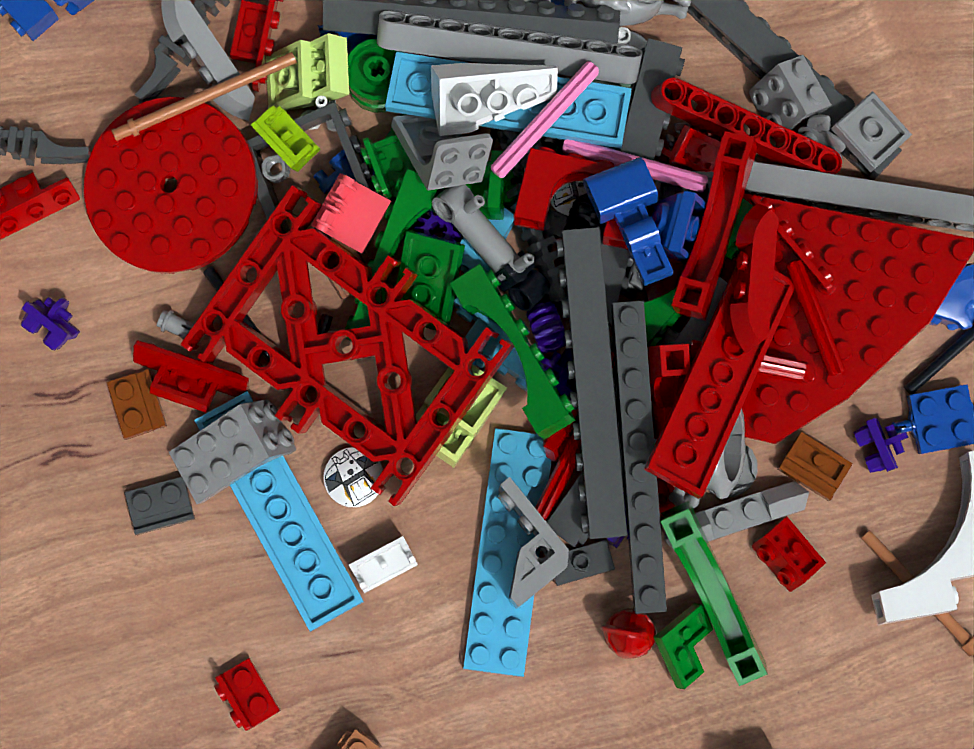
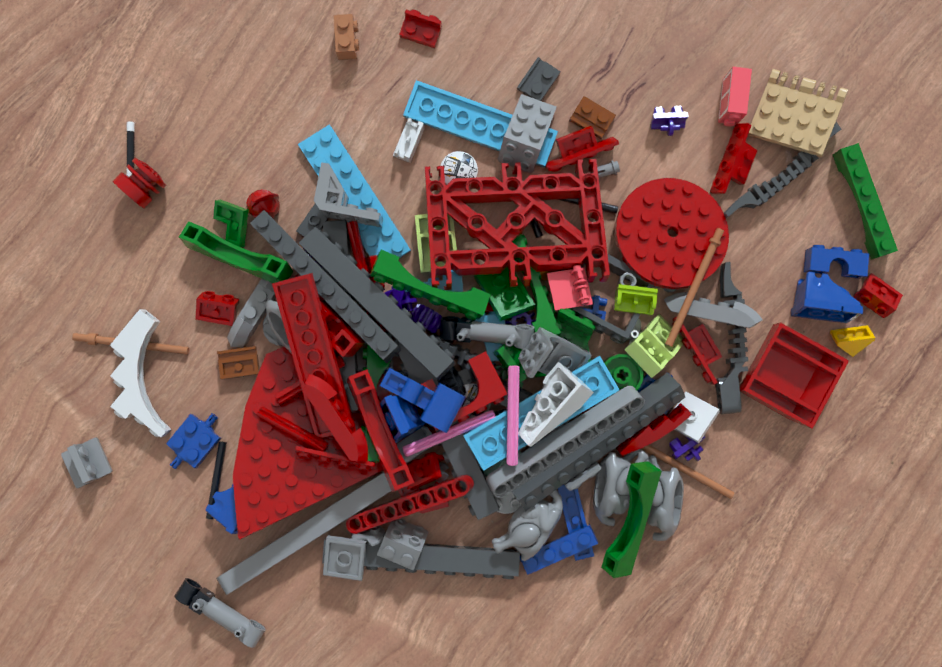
camera: 140 degrees right, 5 degrees up
(873, 433) = (207, 396): dark purple hips -> none

